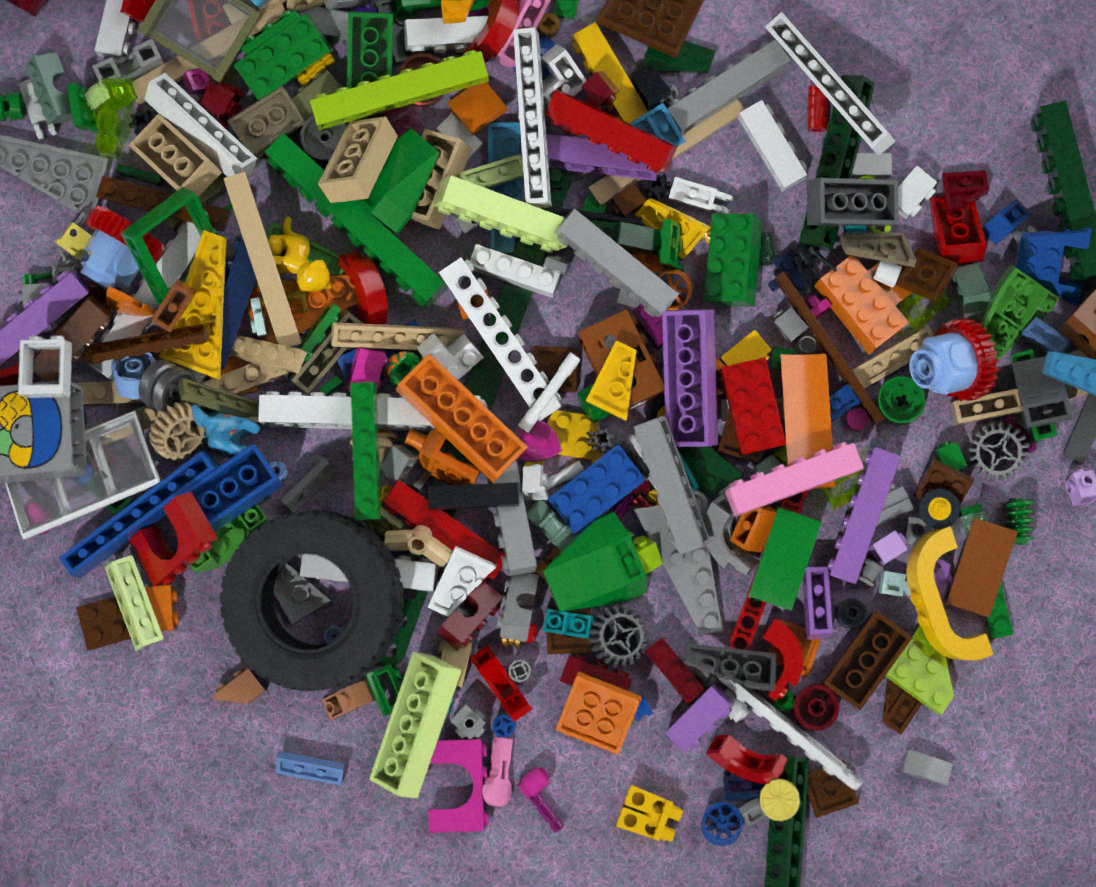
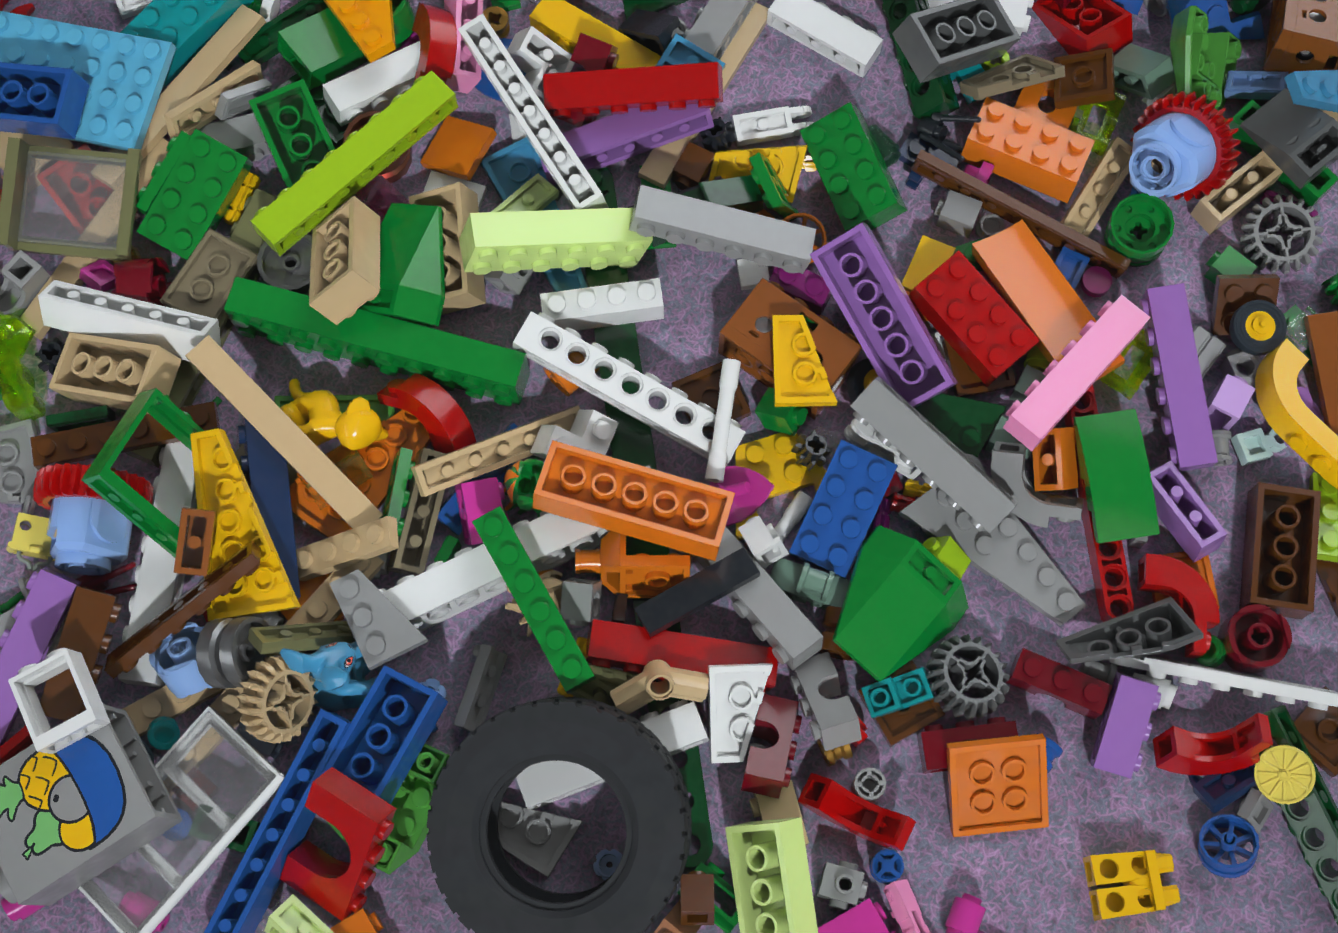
camera: 30 degrees left, 10 degrees down
(99, 411) = (163, 733): none -> teal tile
(126, 304) = (134, 576): orange brick -> none
(258, 324) = (317, 520): light aqua plate -> none
(261, 411) = (374, 621): none -> light grey wing
(373, 685) = (697, 898): none -> reddish brown brick
(557, 264) = (650, 270): light grey slope -> none
(850, 613) = (1222, 505): black wheel -> none
(887, 273) = (1037, 99): white tile -> none

